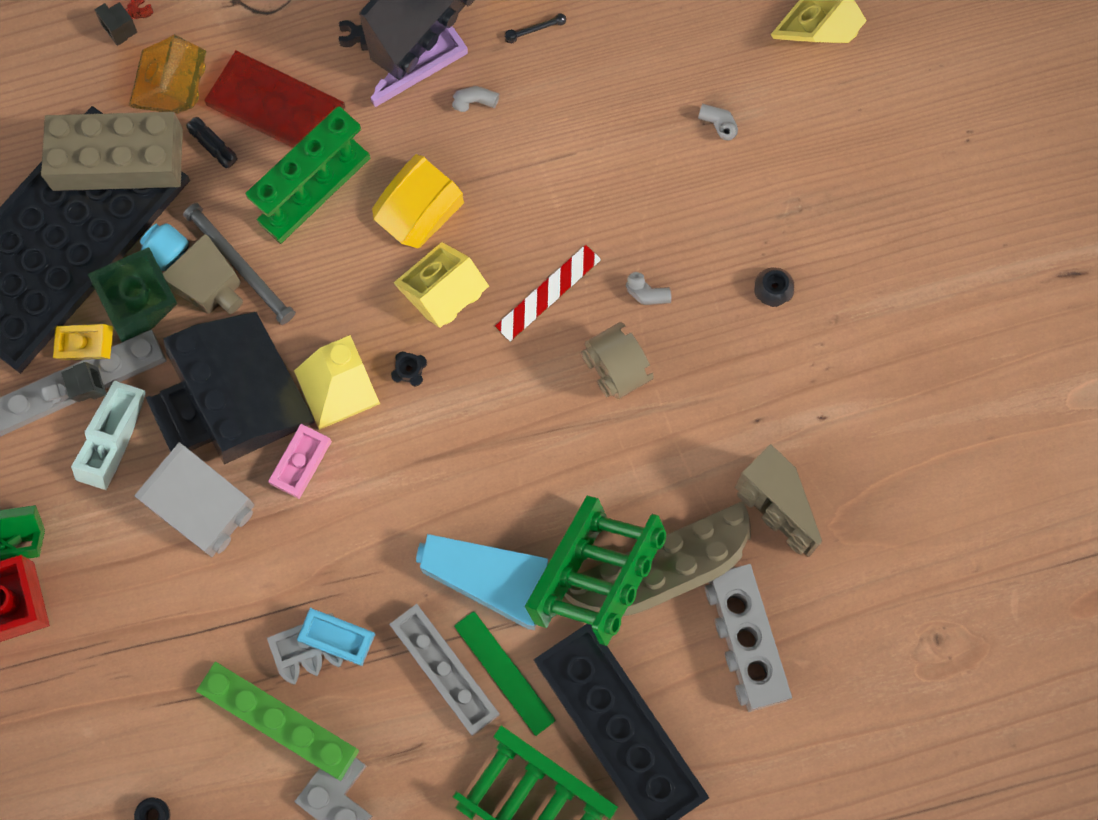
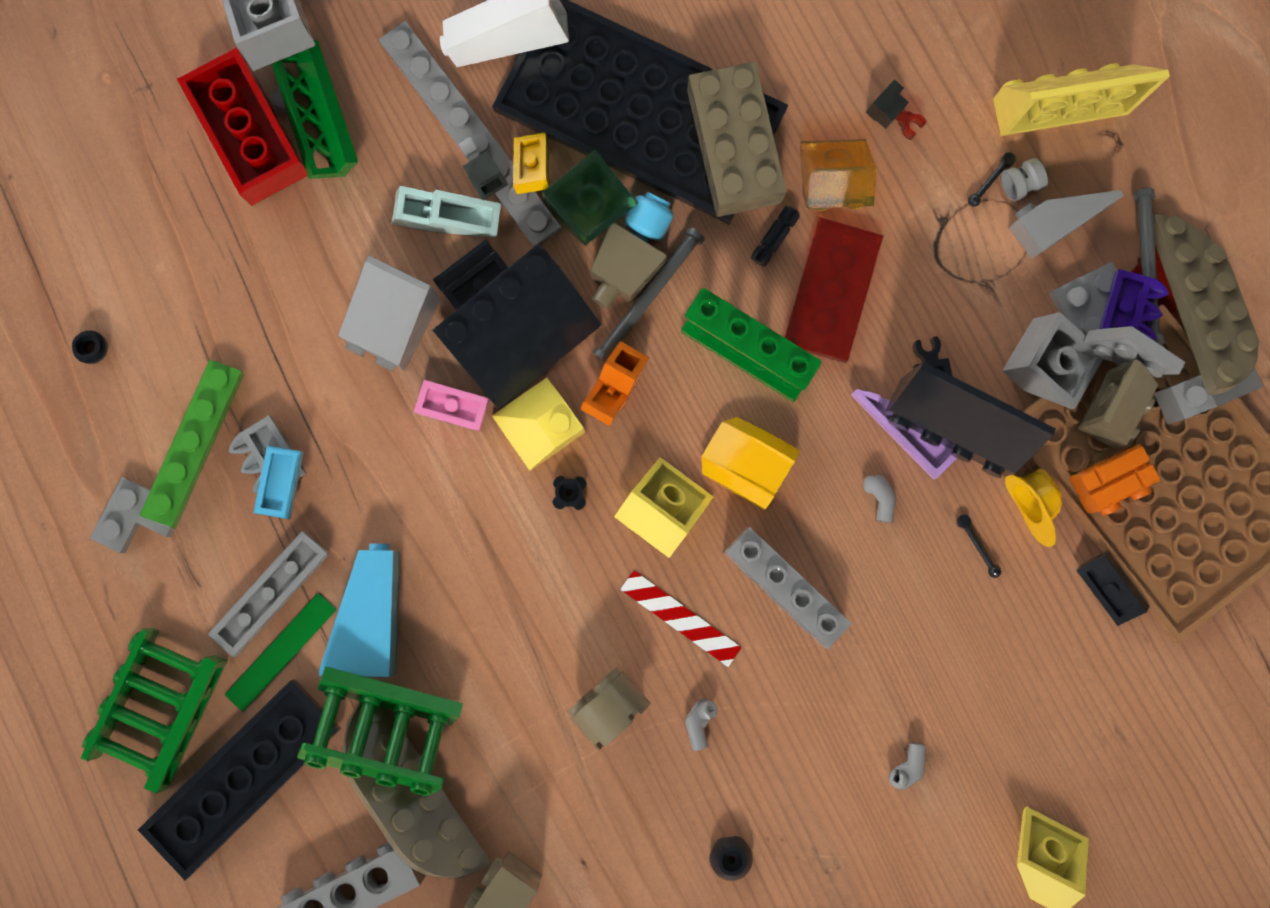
camera: 75 degrees right, 10 degrees up
(313, 302) = (615, 383): none -> orange brick
(538, 190) = (787, 588): none -> light grey brick

